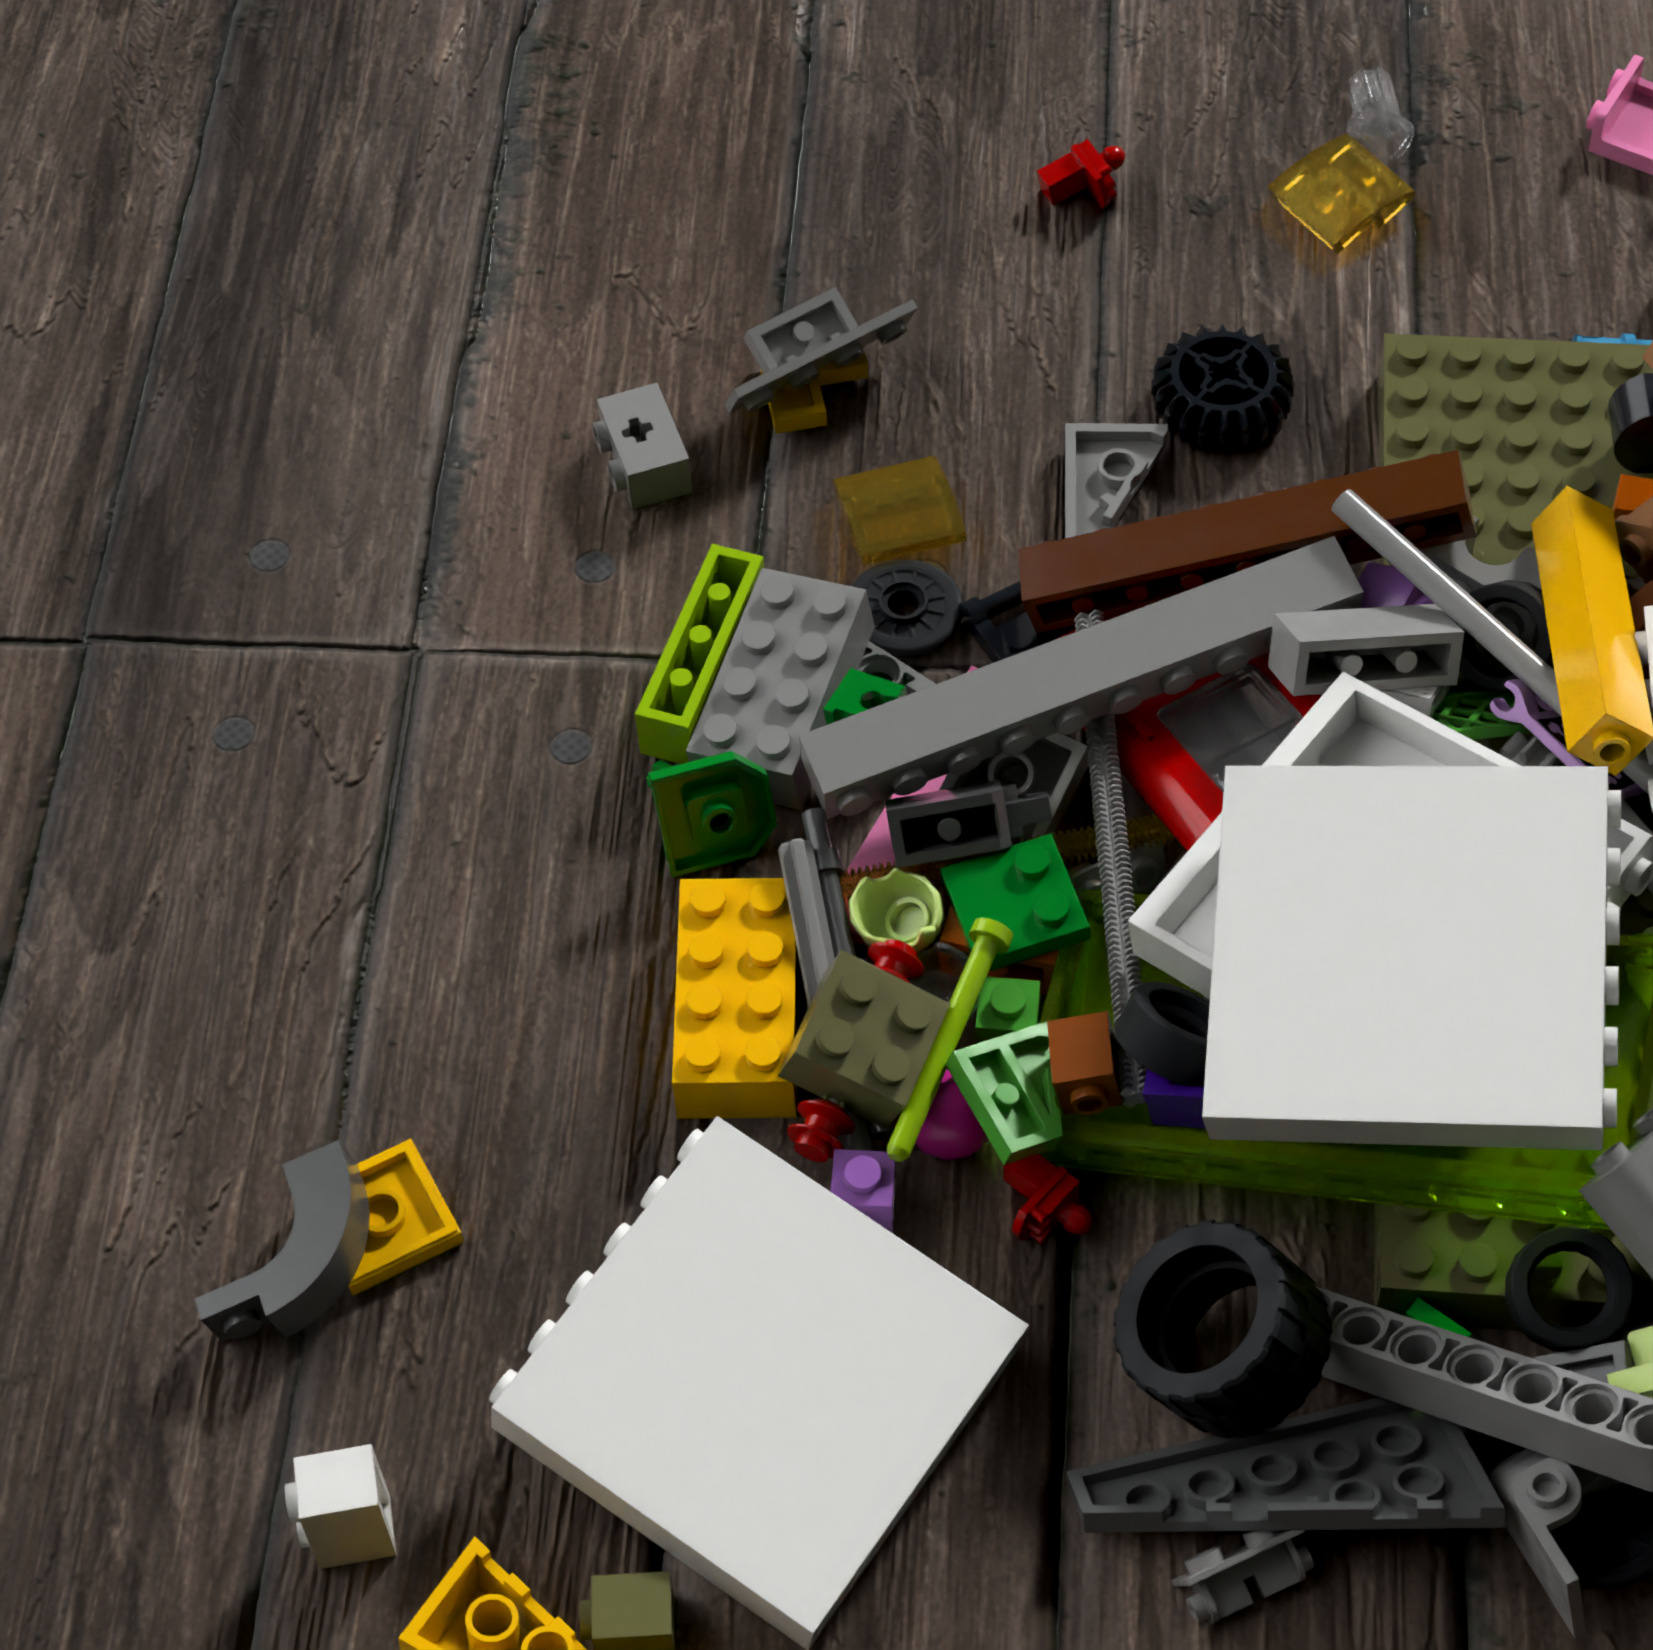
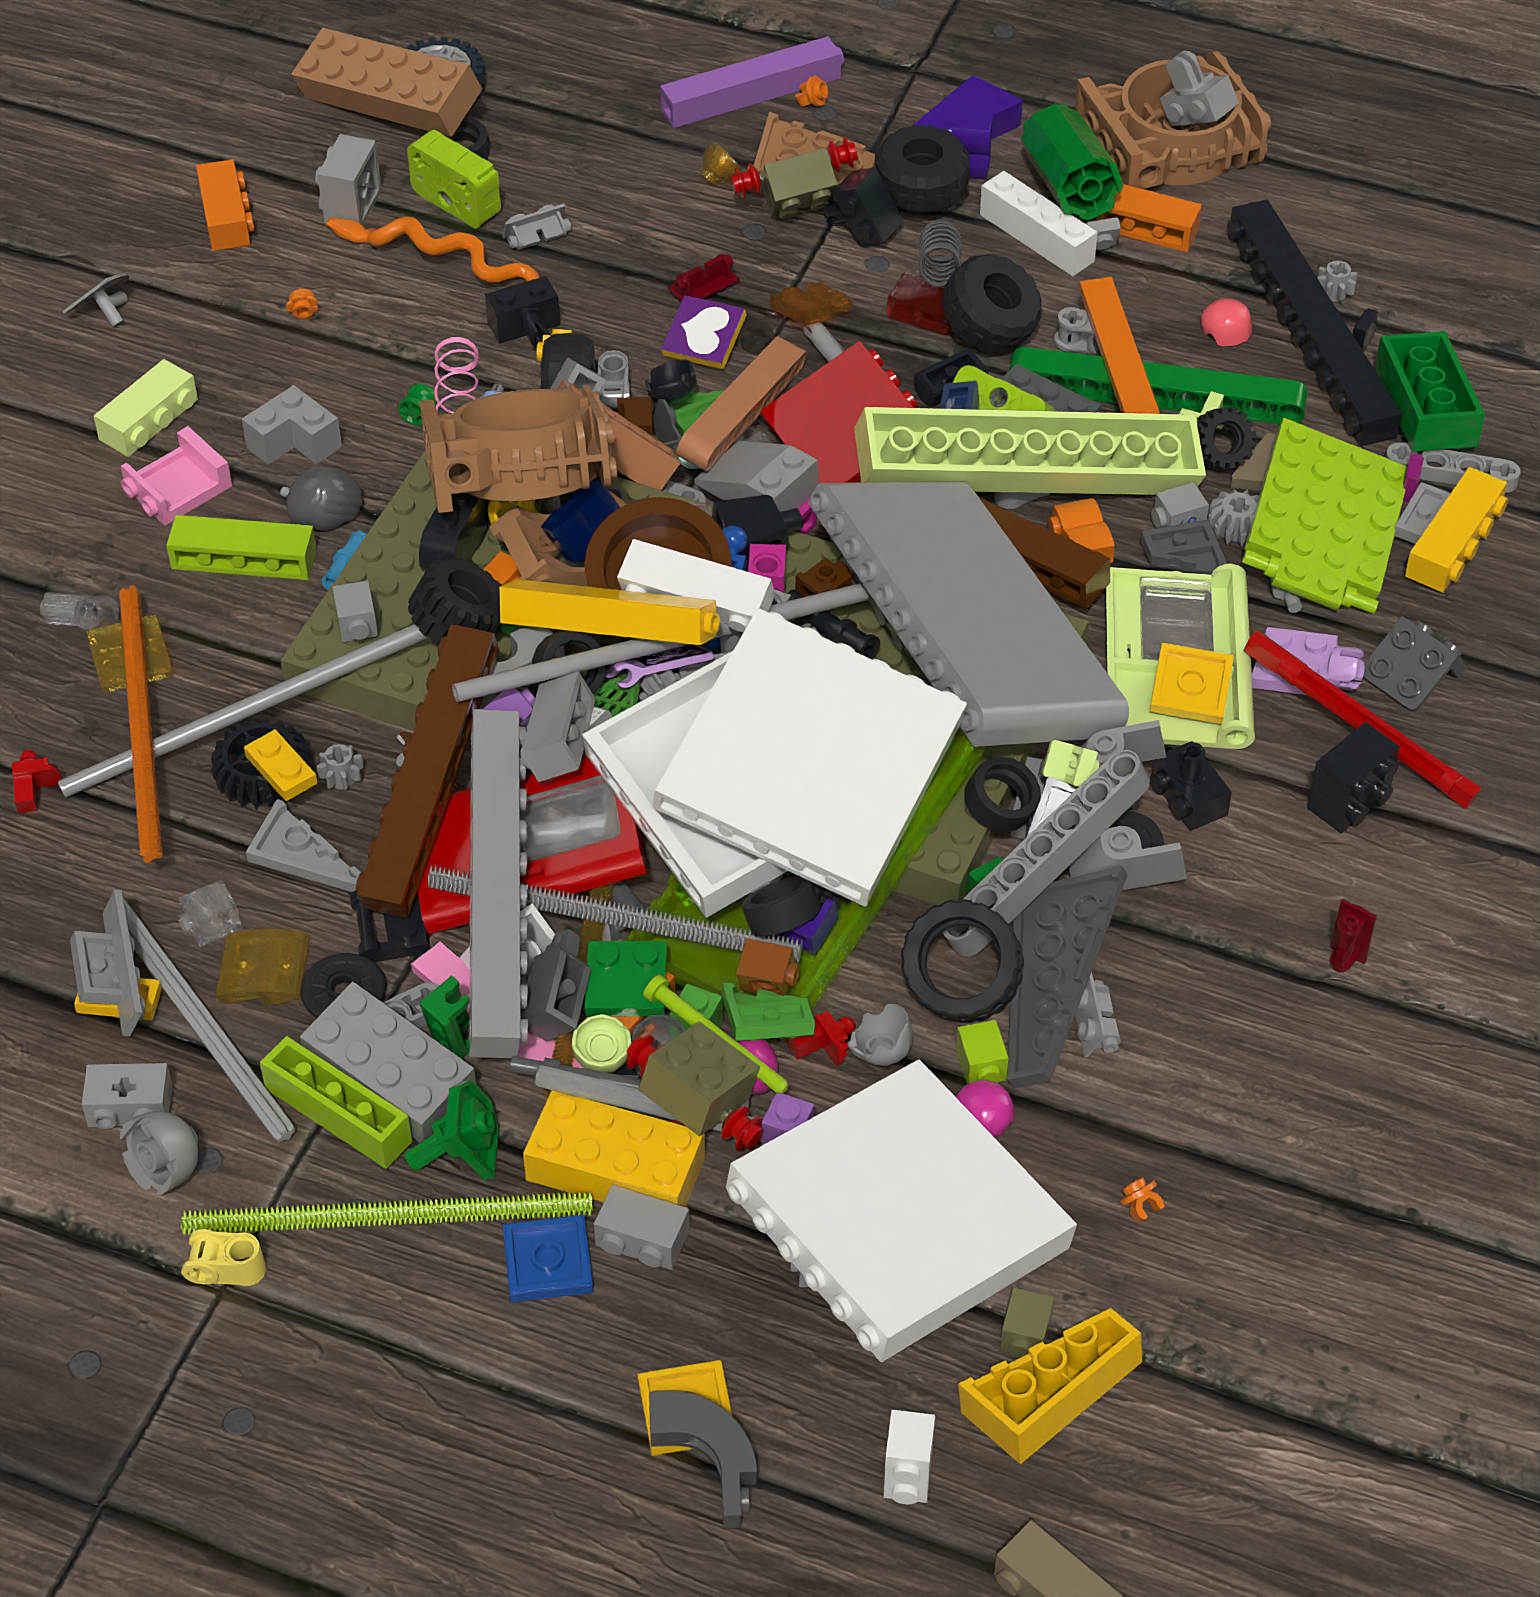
camera: 75 degrees left, 5 degrees down
(442, 633) = (217, 1258): none -> light yellow piece
(564, 979) = (547, 1258): none -> blue tile
(571, 506) = (159, 1150): none -> light grey cylinder
(576, 788) = (388, 1214): none -> lime axle
(634, 1068) = (641, 1227): none -> light grey brick
(802, 467) = (209, 1031): none -> light grey axle
(954, 424) = (209, 913): none -> clear brick
(1004, 1456) = (989, 1105): none -> dark pink hair
(1069, 1274) = (883, 1036): none -> light grey hair
(1097, 1420) = (982, 1052): none -> lime brick
(1205, 397) = (280, 765): none -> yellow plate
(1209, 229) = (140, 725): none -> orange axle
(1257, 468) = (340, 766): none -> light grey gear
(1324, 352) = (246, 707): none -> light grey piece
(1489, 369) = (355, 611): none -> light grey brick
(1565, 433) = (455, 595): none -> black tyre
(1583, 235) = (241, 547): none -> lime brick

